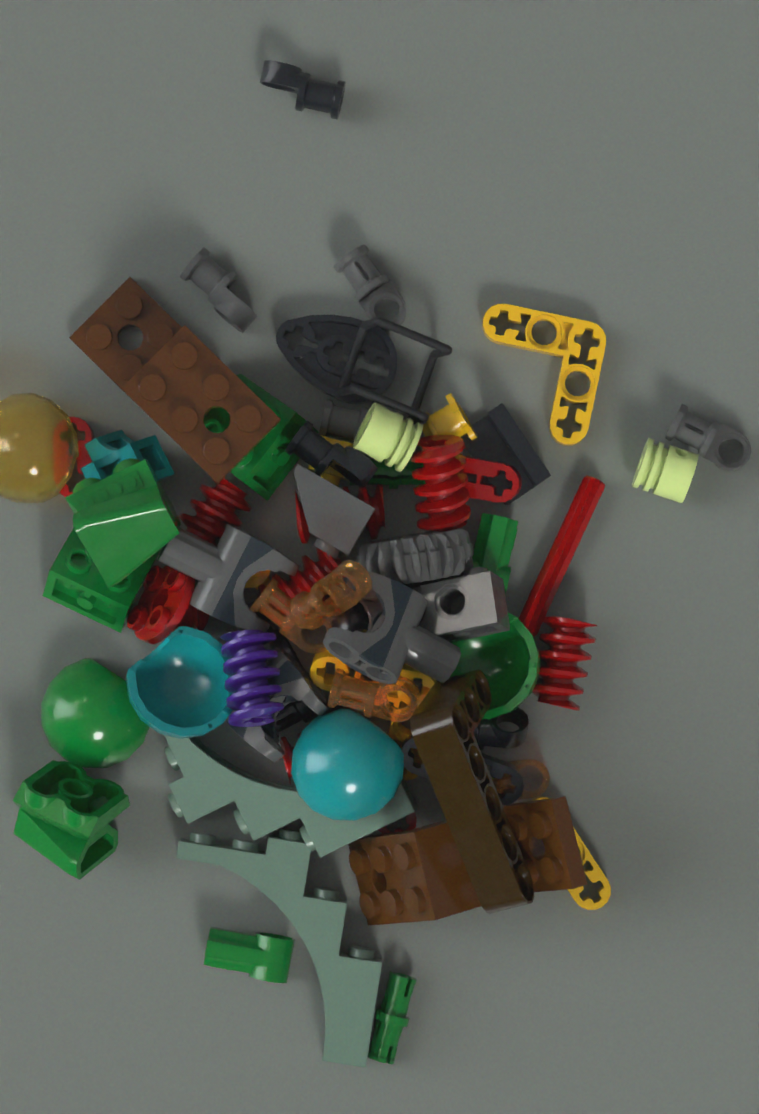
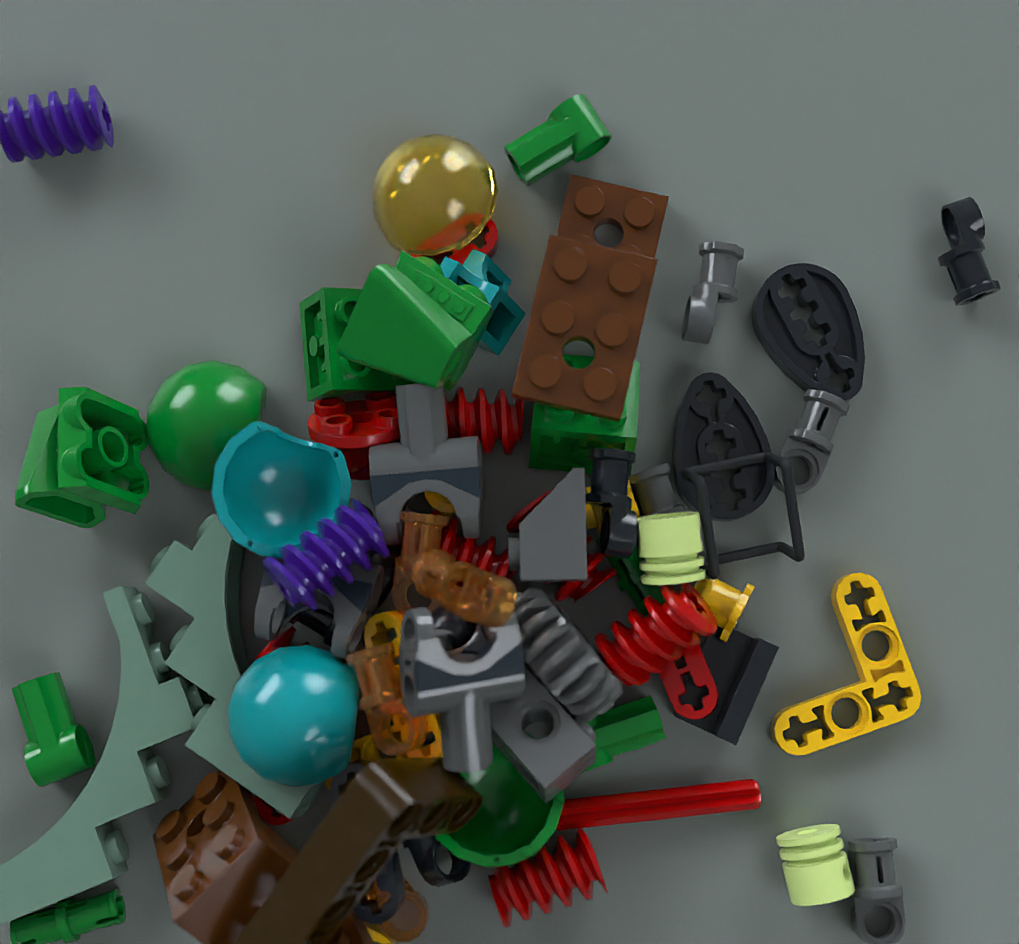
camera: 70 degrees right, 5 degrees down
(38, 321) = (568, 134): none -> green piece
(291, 210) = (832, 312): none -> black piece

